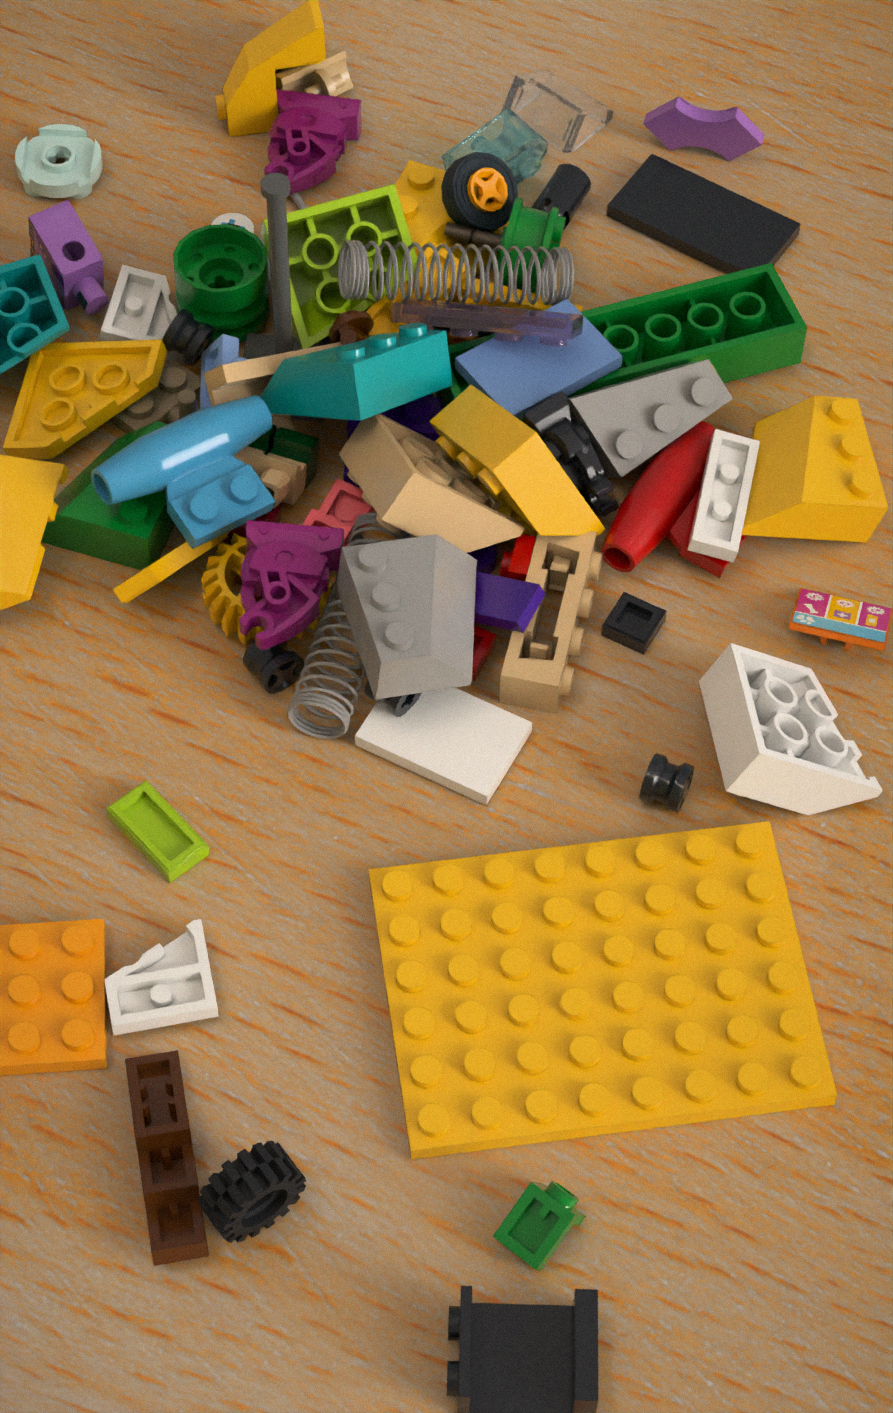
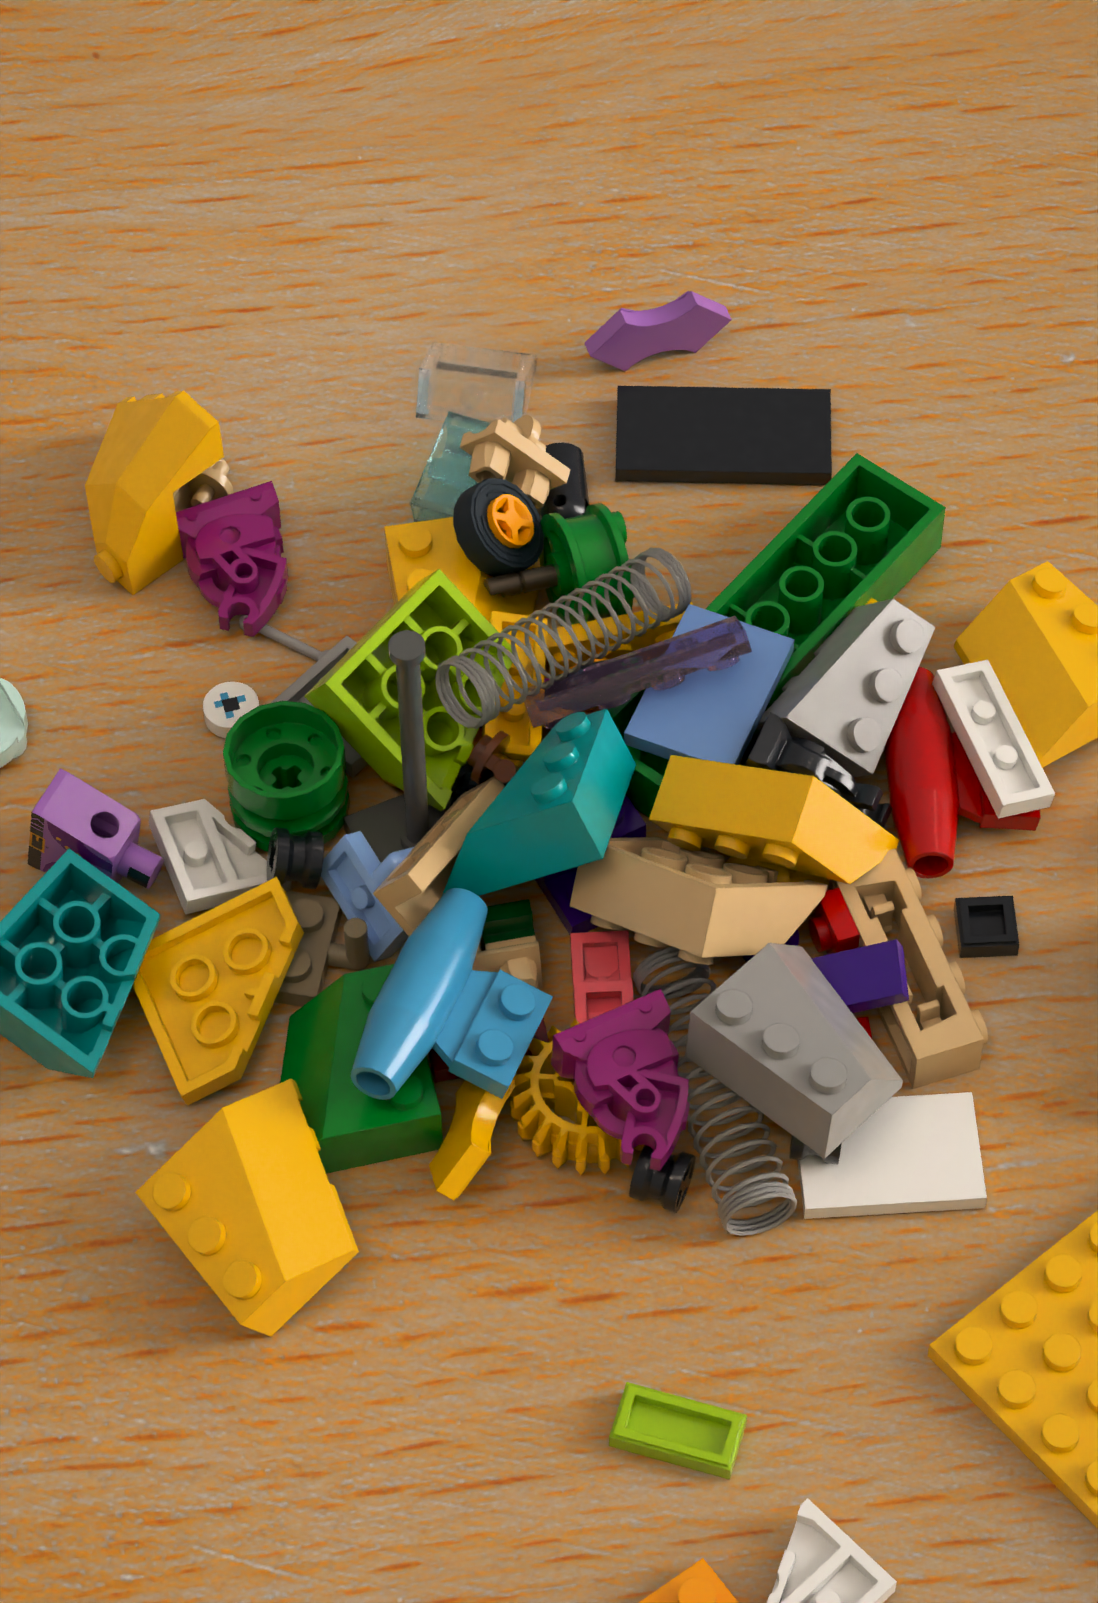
camera: 30 degrees left, 0 degrees up
(528, 152) = (516, 455): none -> tan hips

